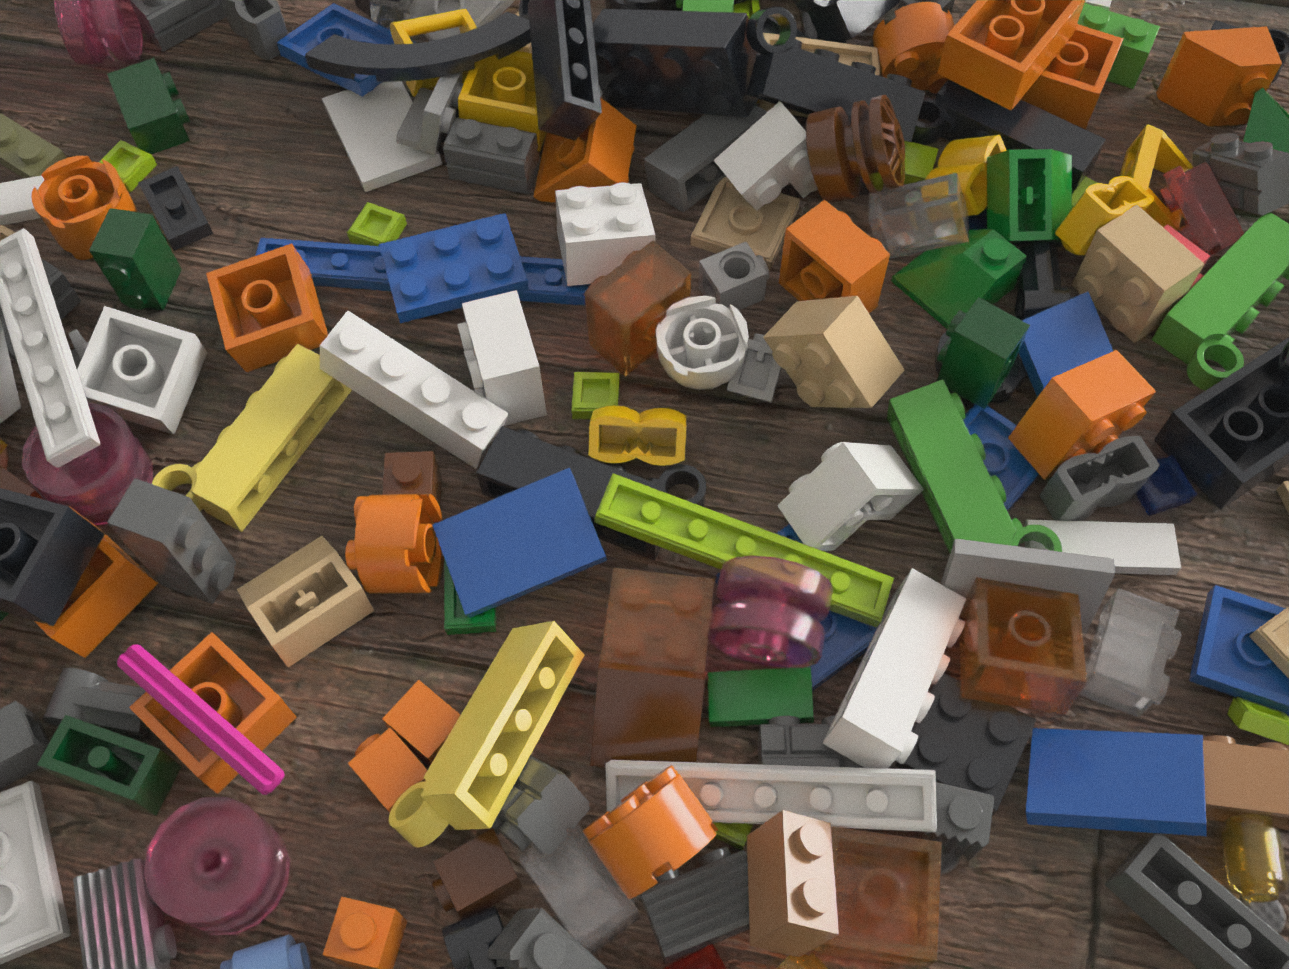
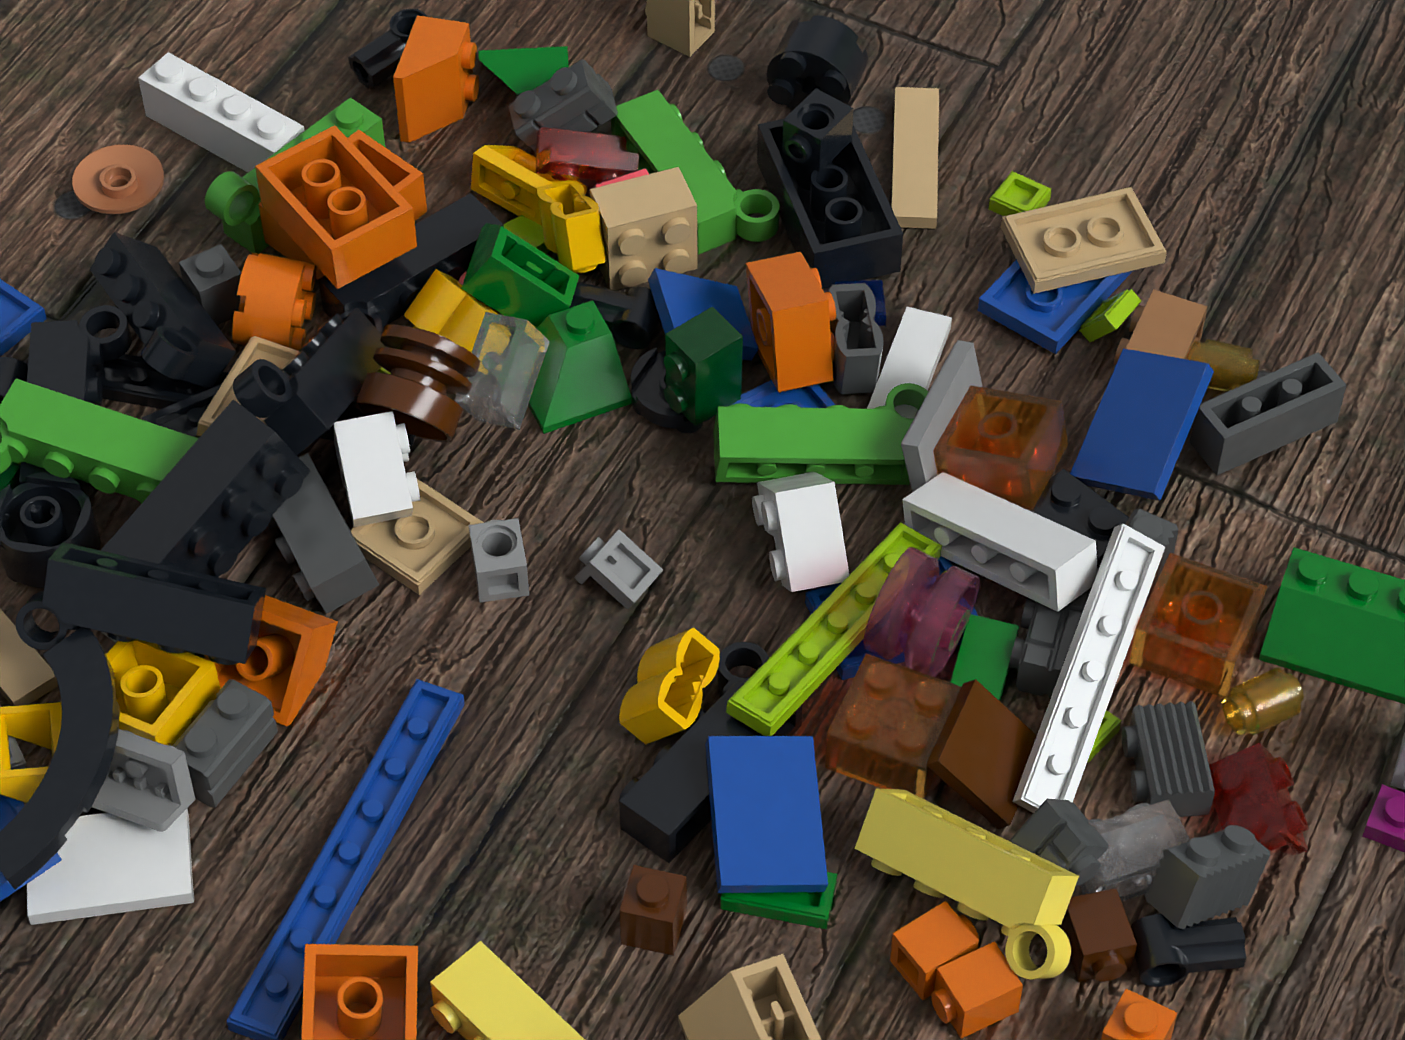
camera: 75 degrees left, 10 degrees down
(376, 226) = (261, 895): lime tile -> none
(396, 543) = (726, 922): orange brick -> none
(411, 389) = (543, 873): white brick -> none
(452, 267) = (371, 816): blue plate -> none
(502, 356) = (534, 780): white brick -> none
(594, 391) = (588, 726): lime tile -> none
(600, 228) = (398, 652): white brick -> none
(630, 304) = (516, 642): clear orange brick -> none
(650, 832) = (1109, 758): orange brick -> none
(702, 342) = (585, 596): white cylinder -> none
(791, 884) = (1179, 667): medium nougat brick -> none
(832, 258) = (536, 460): orange brick -> none
(834, 353) = (652, 484): tan brick -> none
(1131, 653) = (1019, 367): clear brick -> none

